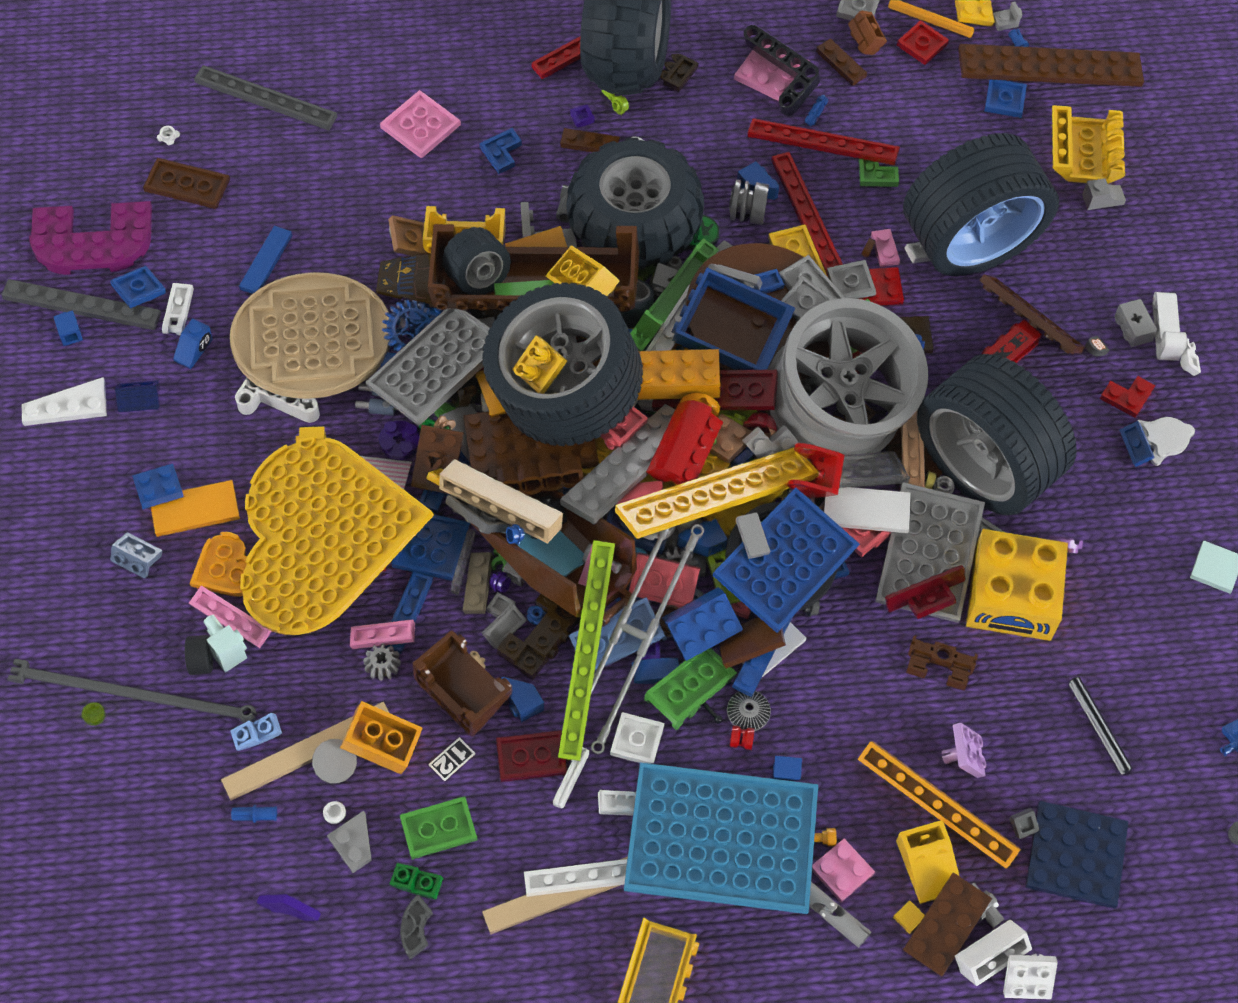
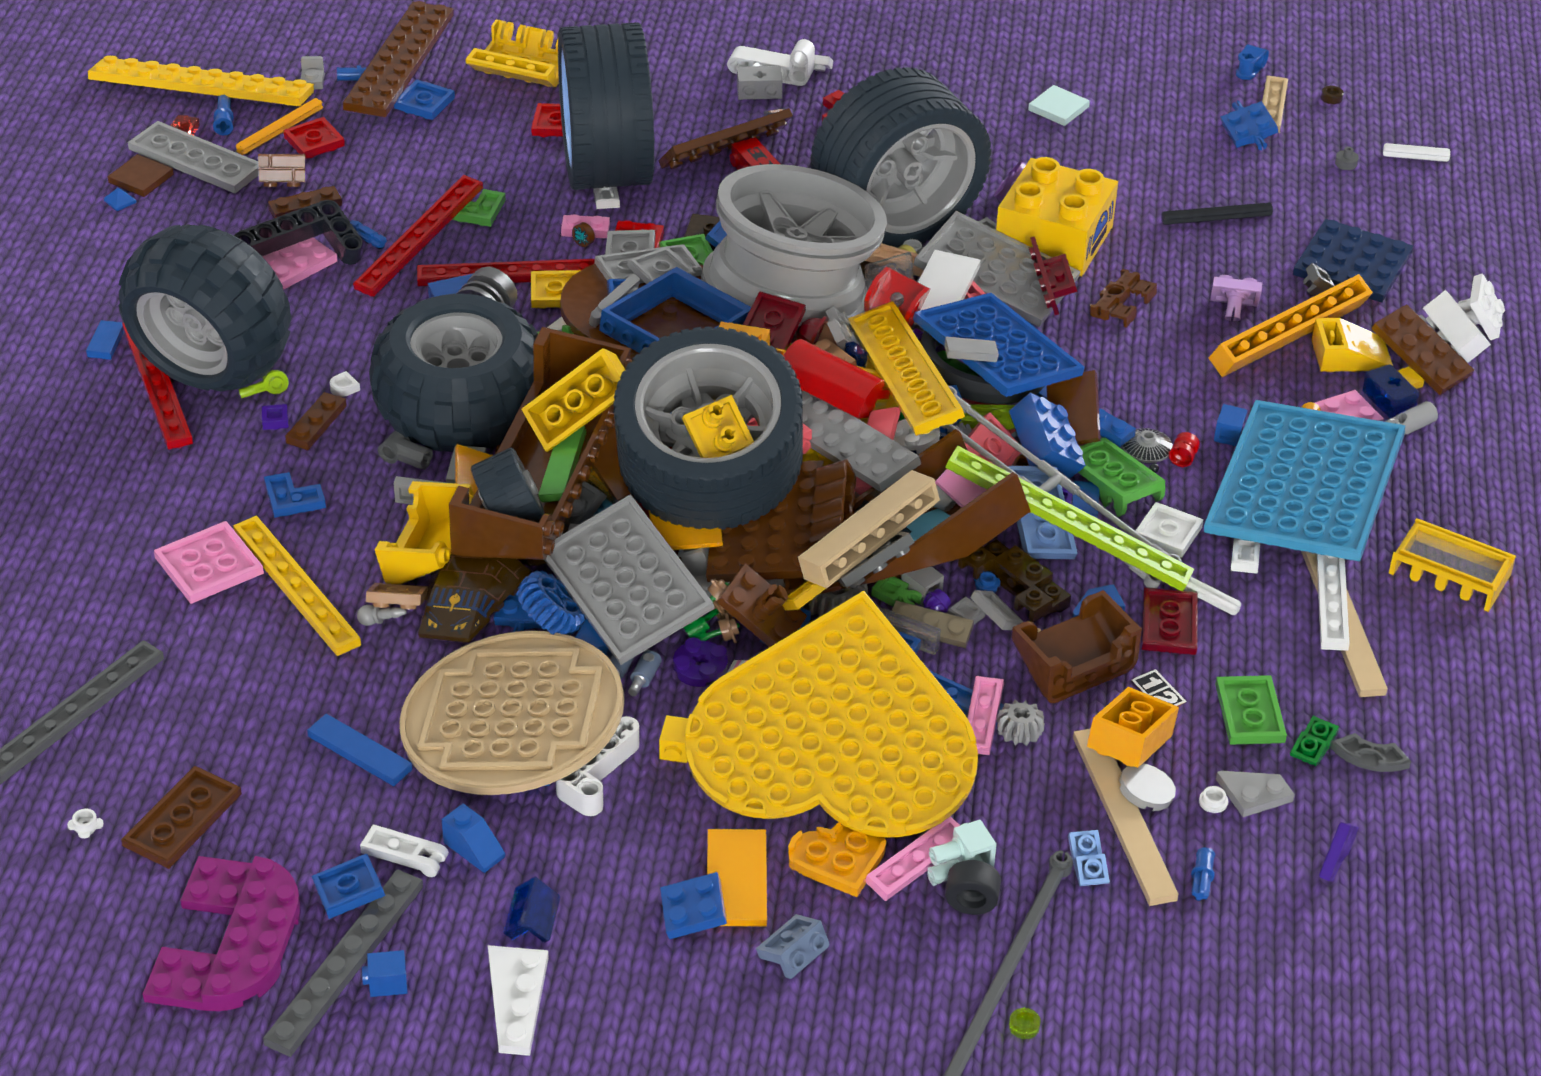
camera: 75 degrees left, 20 degrees down
(410, 179) = (298, 586): none -> yellow plate
(514, 534) = (923, 529): blue plate -> none
(887, 891) = (1390, 390): none -> clear blue brick

